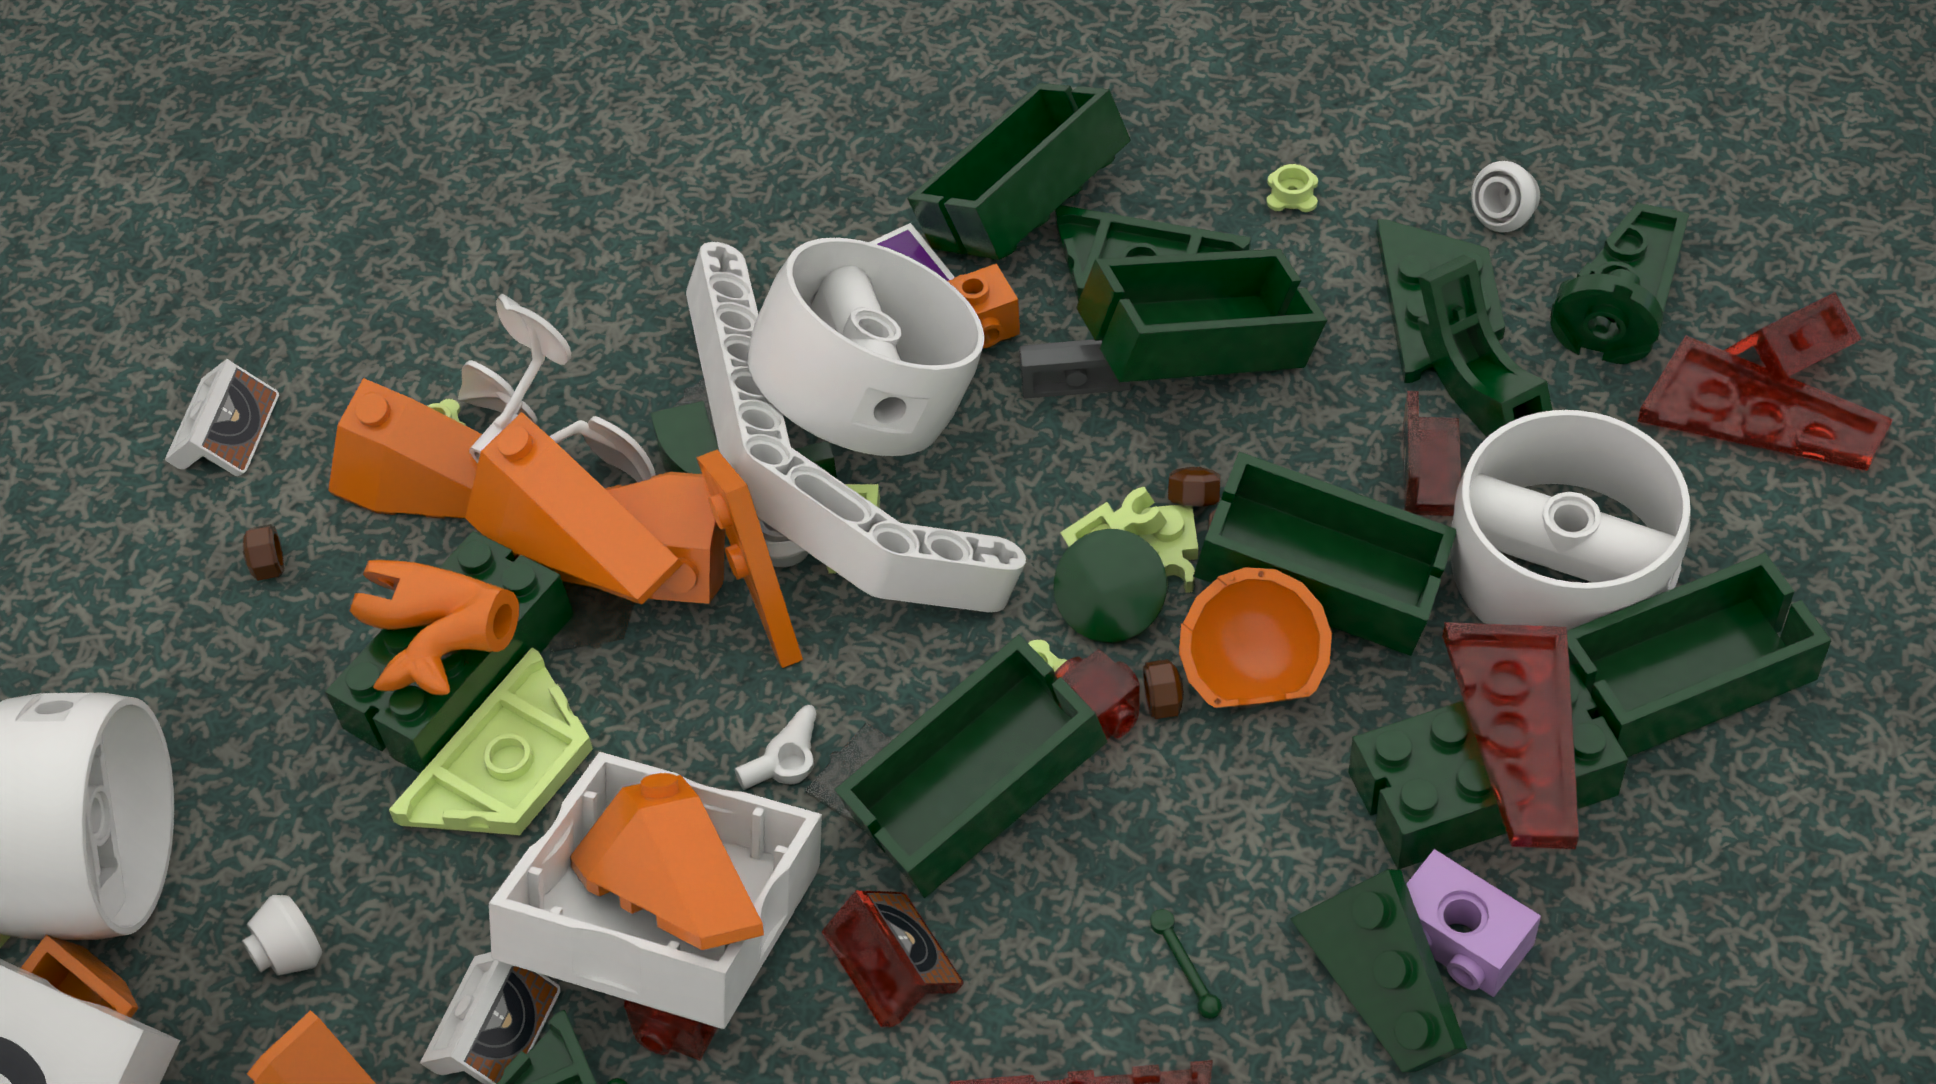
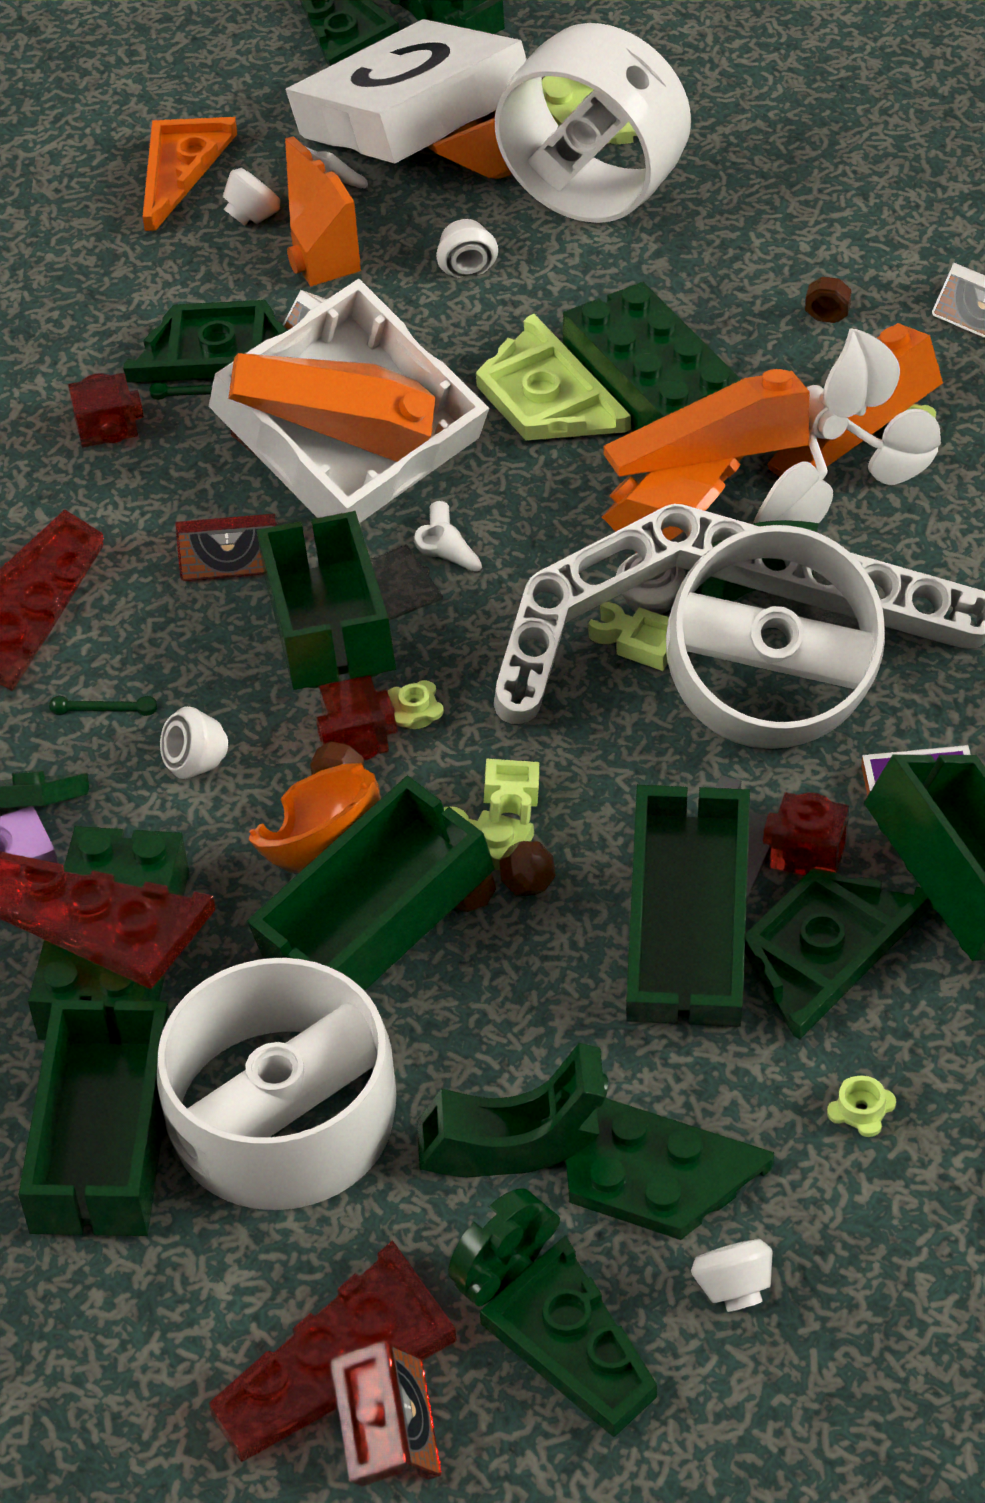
camera: 115 degrees right, 5 degrees down
(453, 605) = (672, 317): orange piece -> none
(748, 552) = (612, 500): orange wing -> none
(992, 301) = (825, 770): orange brick -> none
(1046, 296) = (807, 833): none -> clear red brick
(1110, 585) = (457, 762): dark green dish -> none
(1209, 824) = (192, 743): none -> white cone
(1429, 461) = (451, 1048): clear red panel -> none

